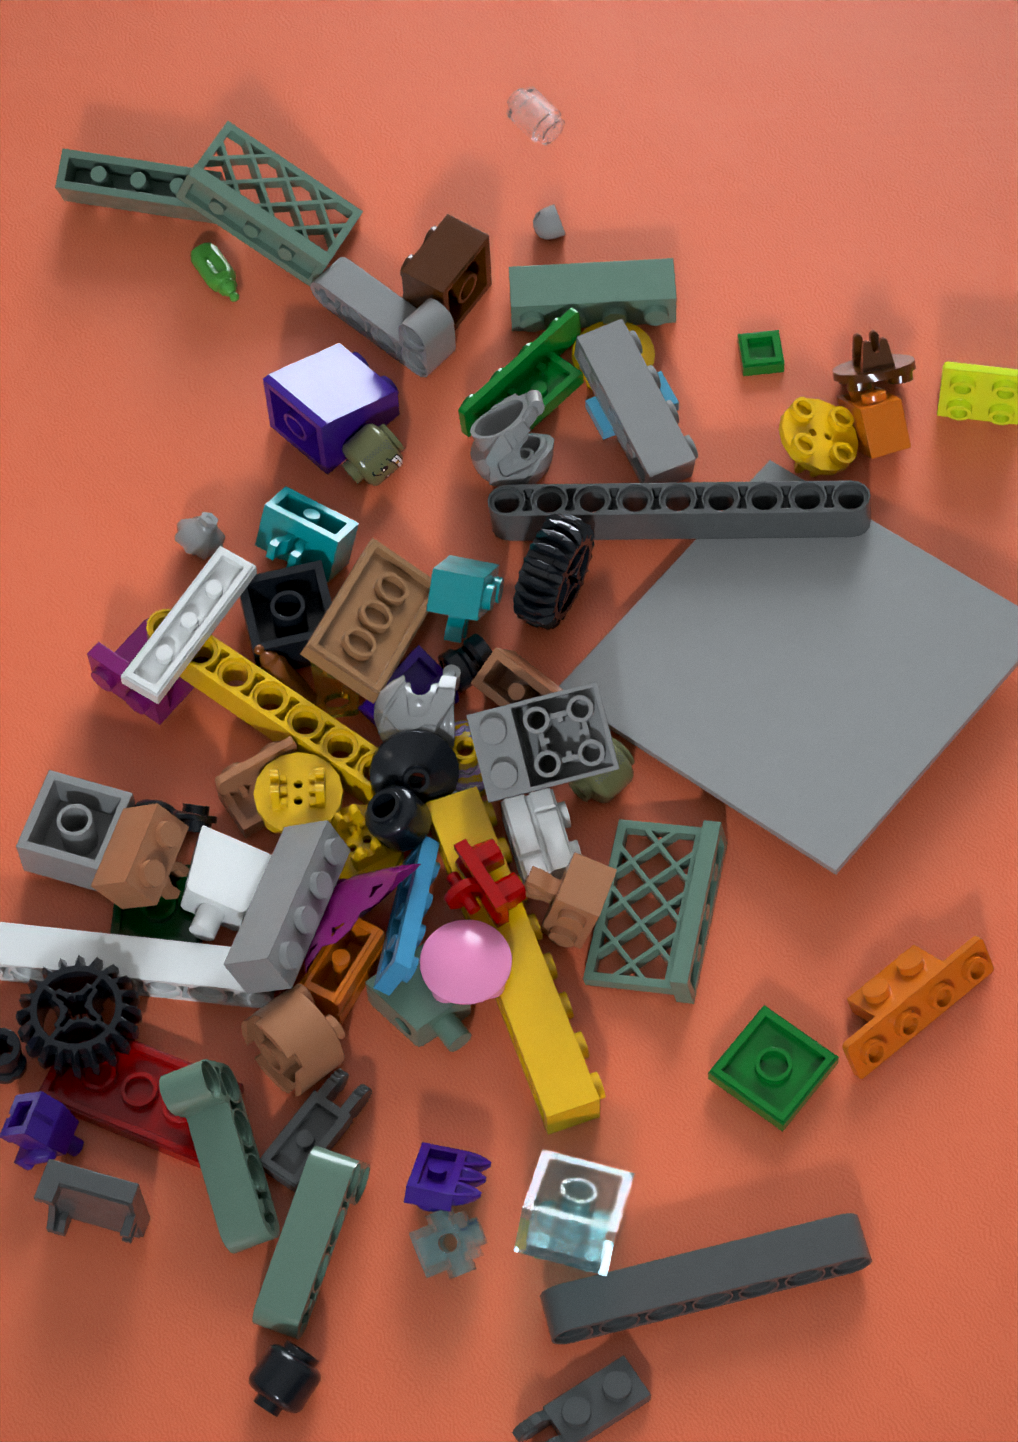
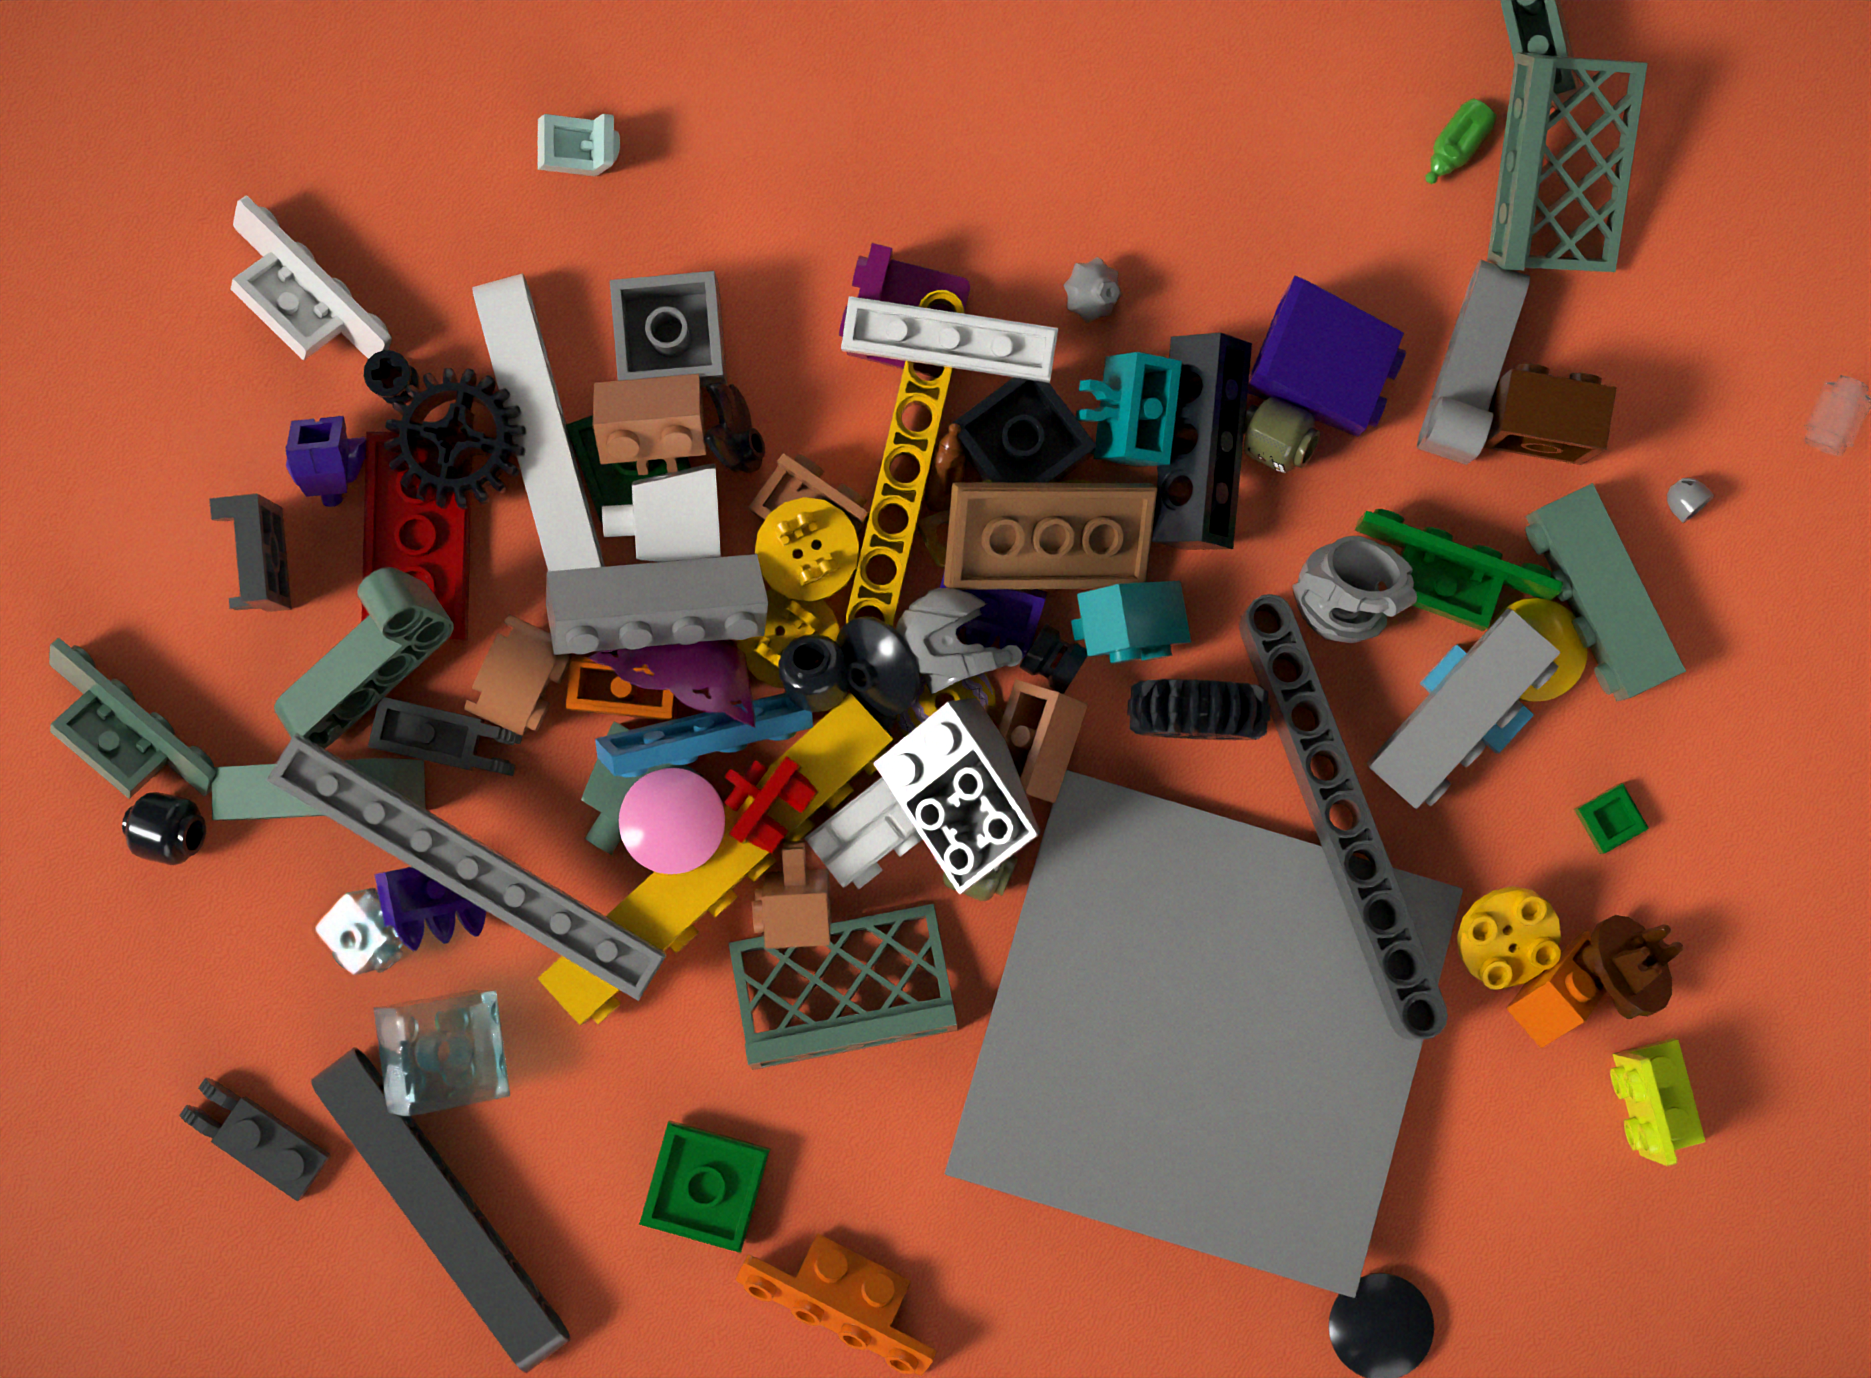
camera: 60 degrees right, 25 degrees up
(183, 1382) = (117, 733): none -> sand green bracket
(413, 518) = (1202, 482): none -> black brick
(428, 1121) = (466, 866): none -> light grey tile

